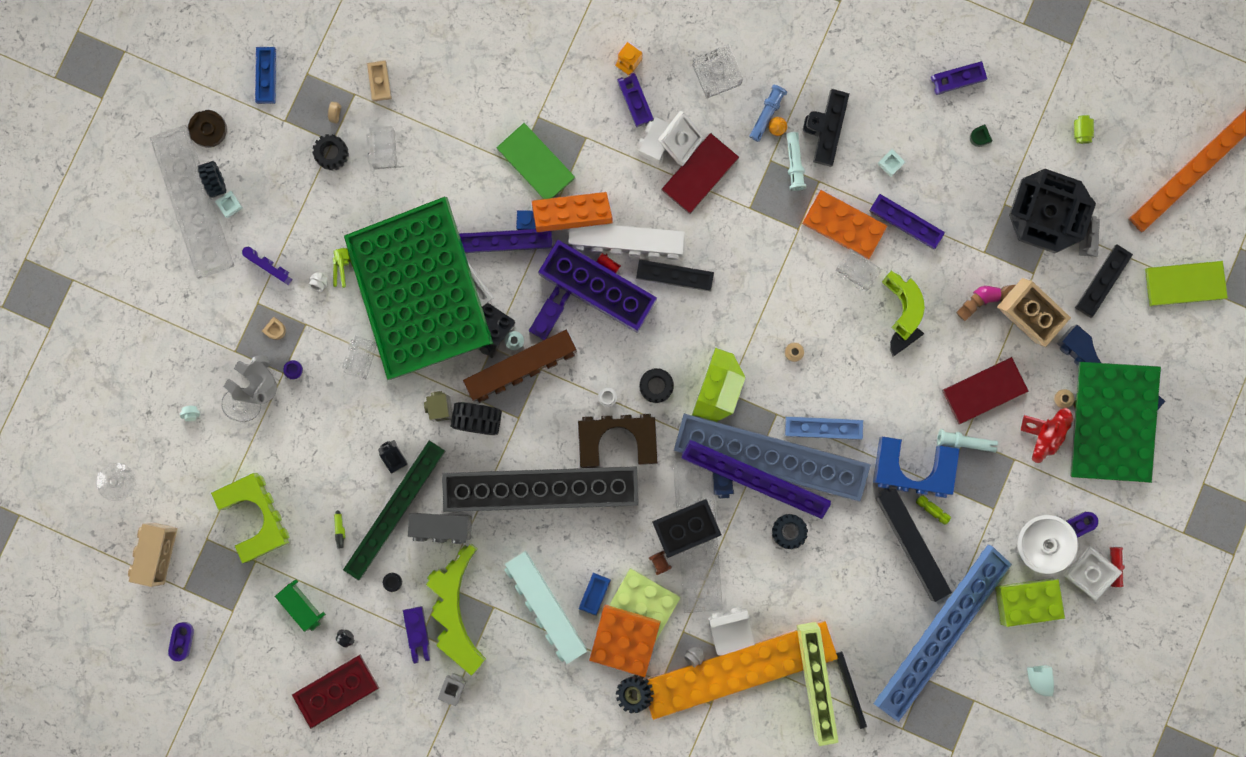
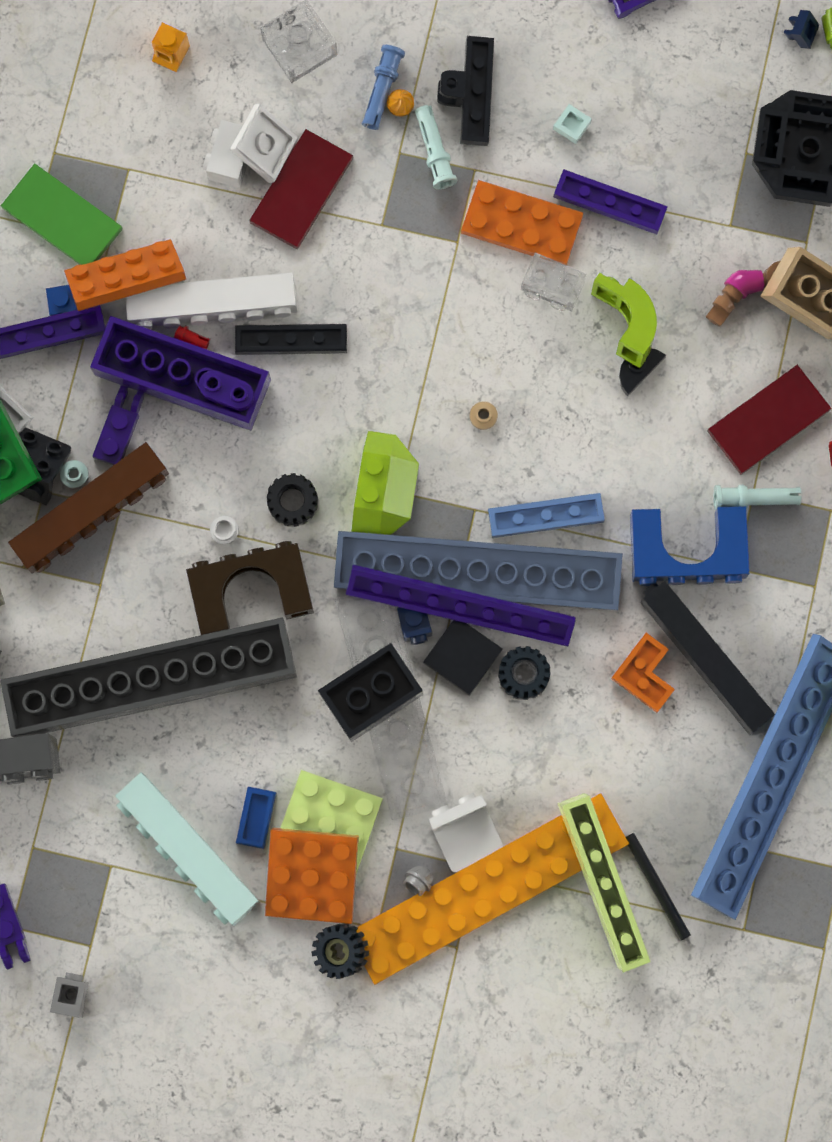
camera: 10 degrees left, 5 degrees down
(447, 585) = (38, 845): lime arch -> none
(476, 418) = (36, 593): black tyre -> none
(626, 305) = (225, 390): none -> dark purple plate
(635, 100) = (189, 103): dark purple plate -> none
(660, 562) = (343, 753): copper bush -> none
(750, 512) = (462, 656): none -> black tile
(864, 547) = (637, 675): none -> orange plate
(933, 509) = (727, 603): lime axle -> none
(980, 136) = (693, 65): dark green tile -> none
(1061, 126) = (804, 29): none -> dark blue tile

